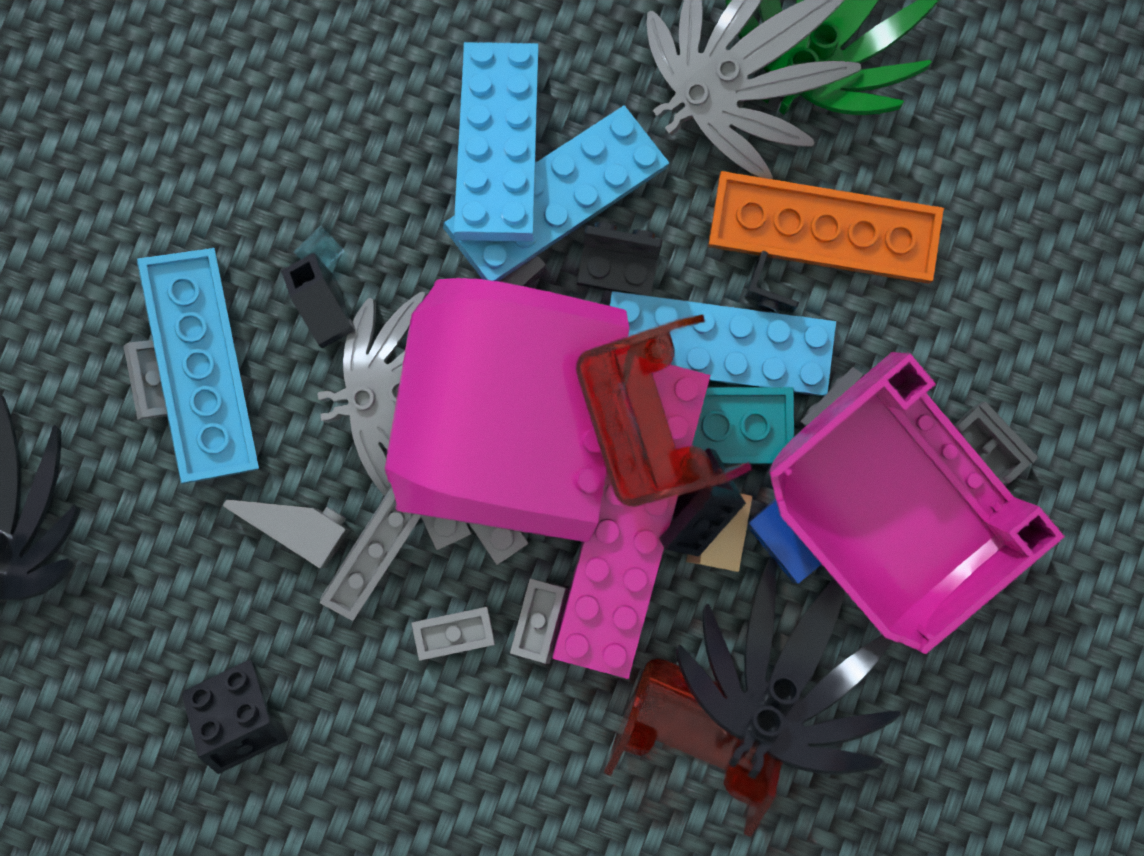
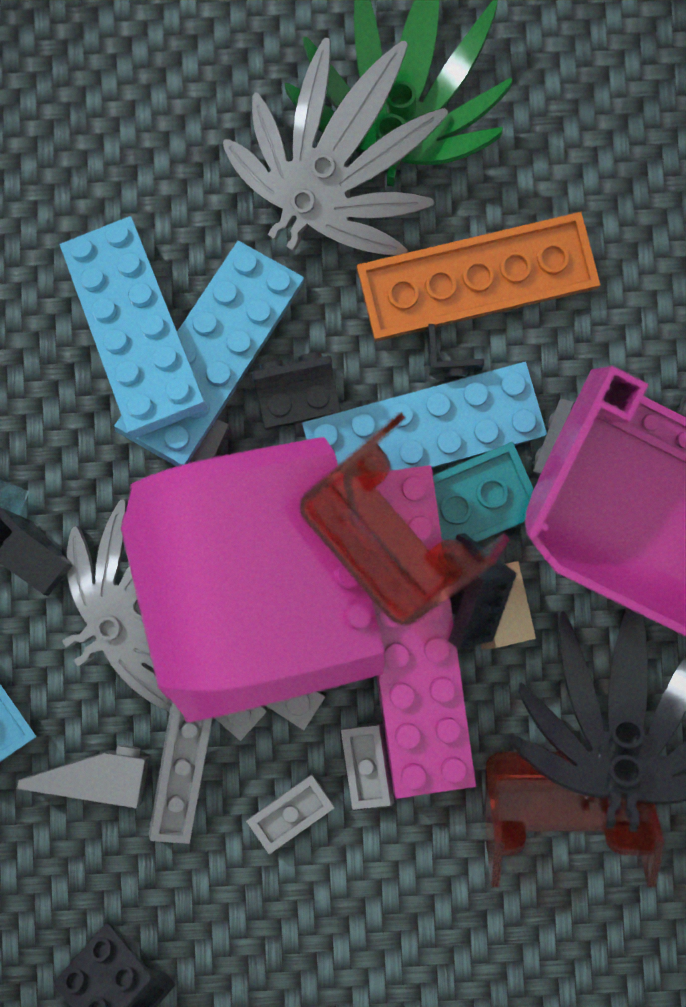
camera: 25 degrees left, 0 degrees up
(782, 543) = (565, 593): blue brick -> none

